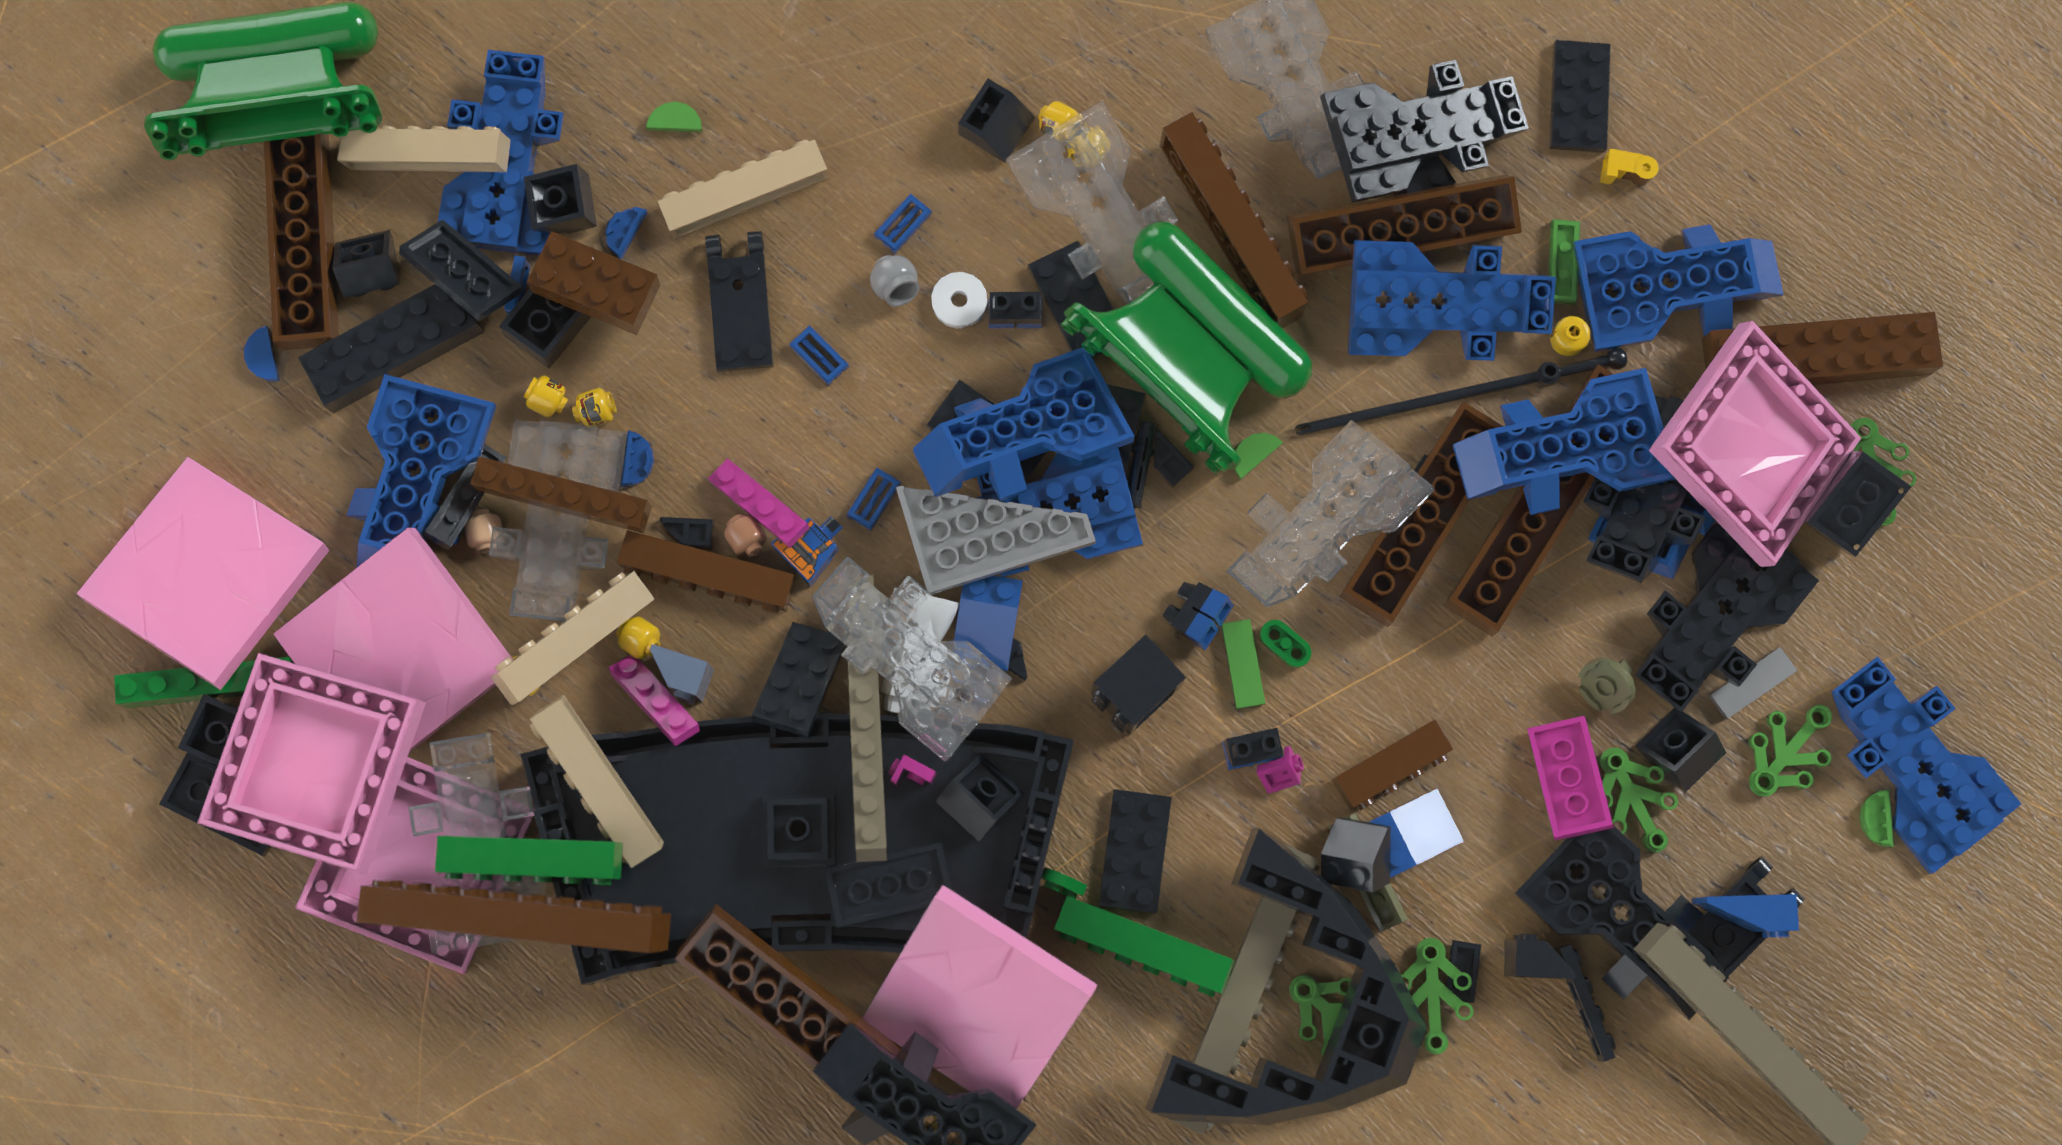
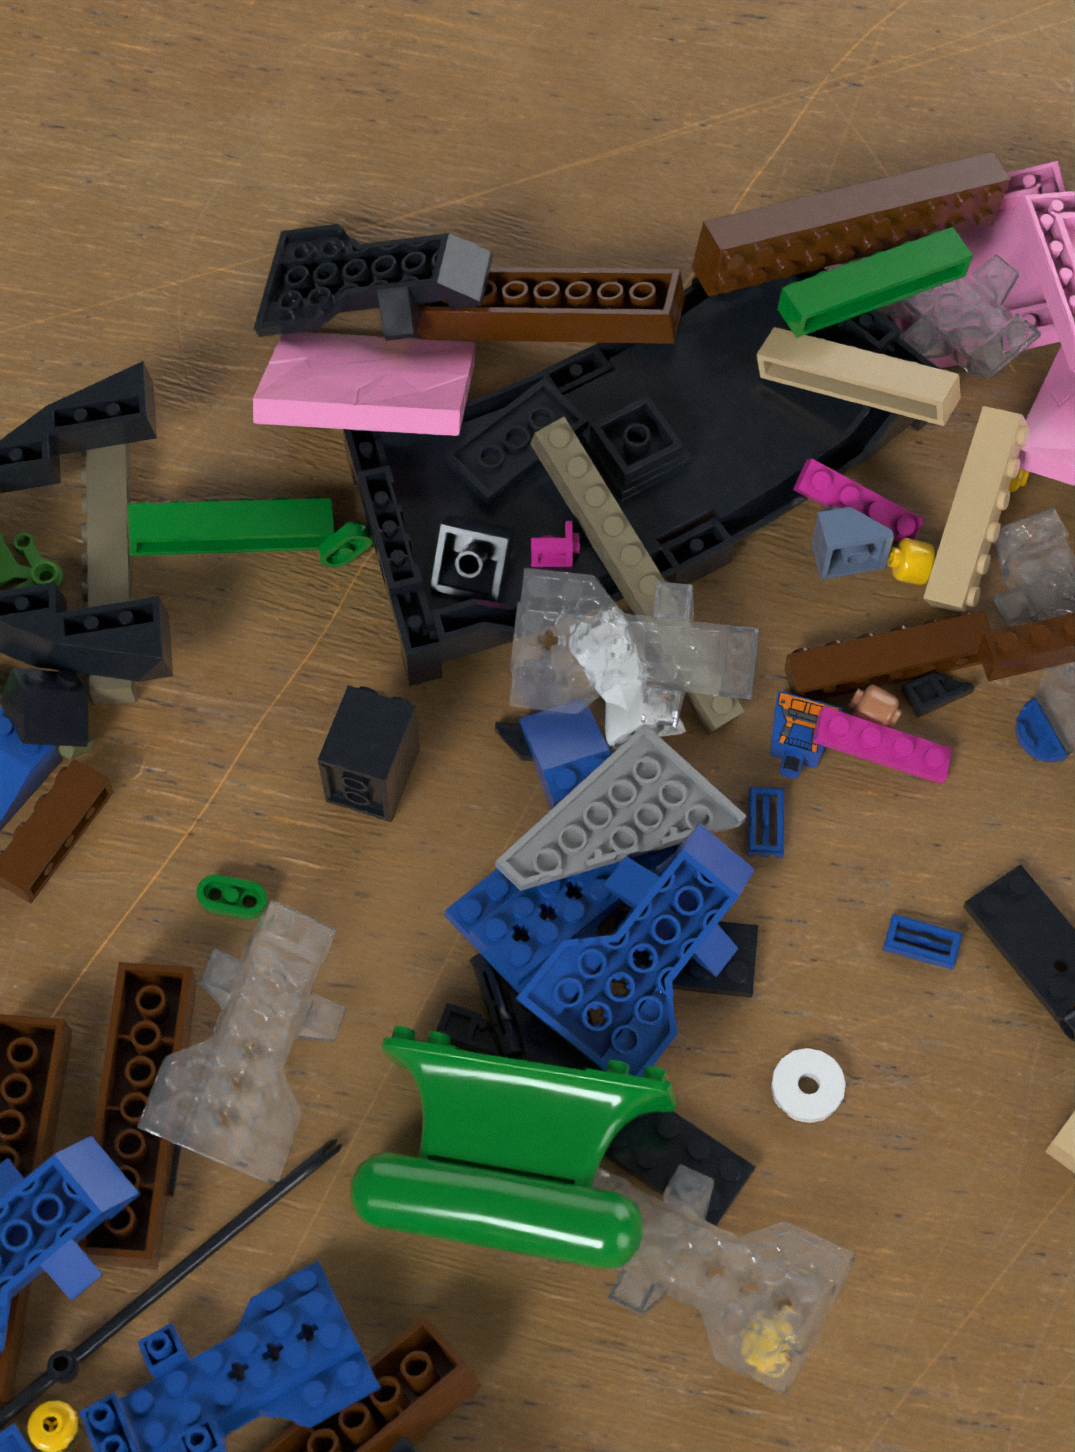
camera: 155 degrees right, 15 degrees down
(799, 680) = (726, 578): black plate -> none
(887, 241) = (922, 1170): blue tile -> none
(894, 280) = (893, 1058): light grey piece -> none
(995, 120) = (897, 1316): black slope -> none
(1013, 307) = (744, 1094): black hips -> none
(1054, 116) = (826, 1363): yellow head -> none
(1135, 851) = (288, 620): black plate -> none
(1199, 614) = (341, 874): hips -> none
(1232, 220) = (542, 1339): reddish brown brick -> none
(1243, 664) = (269, 856): bright green tile -> none
(1251, 748) = (211, 767): black hips -> none
(1255, 450) = (375, 1090): bright green tile -> none
(1281, 772) = (167, 761): dark pink bracket -> none

